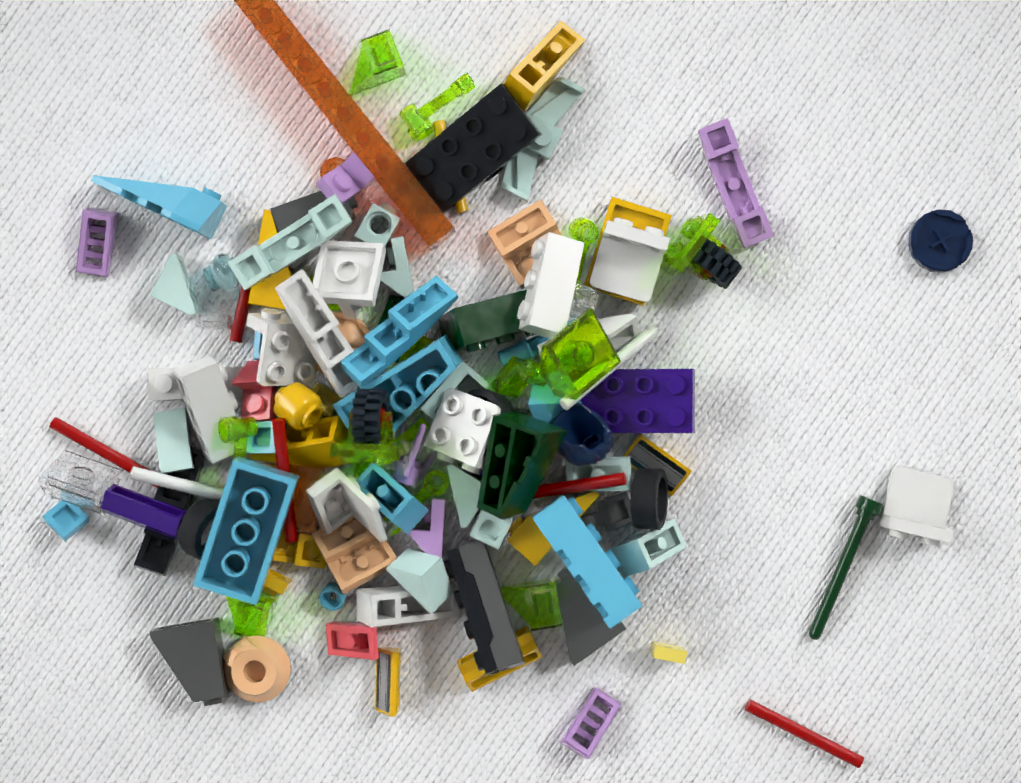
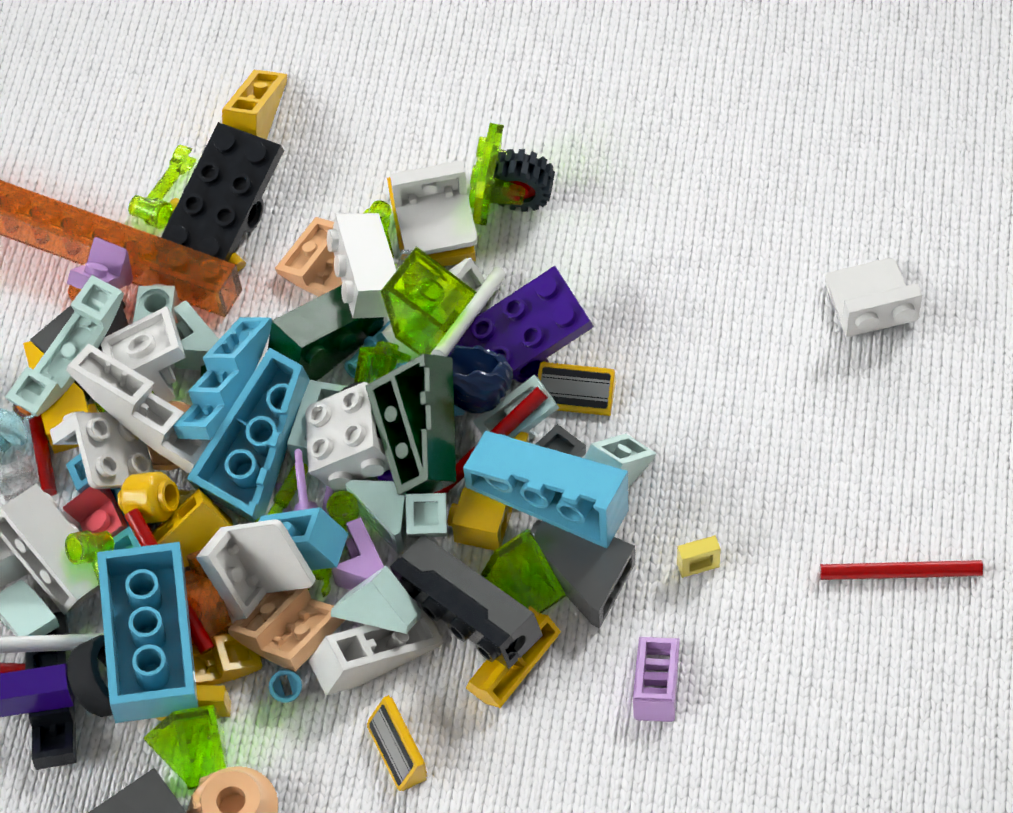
camera: 25 degrees left, 30 degrees down
(352, 640) = (332, 712): coral slope -> none
(370, 431) = (241, 467): plate -> none
(377, 63) = (88, 177): clear neon green slope -> none
(545, 115) = (279, 197): light aqua plate -> none
(649, 498) = (583, 410): black tyre -> none
(733, 183) = (485, 105): lavender slope -> none
(866, 511) = (823, 324): dark green piece -> none
(940, 241) = (740, 75): dark blue tile -> none

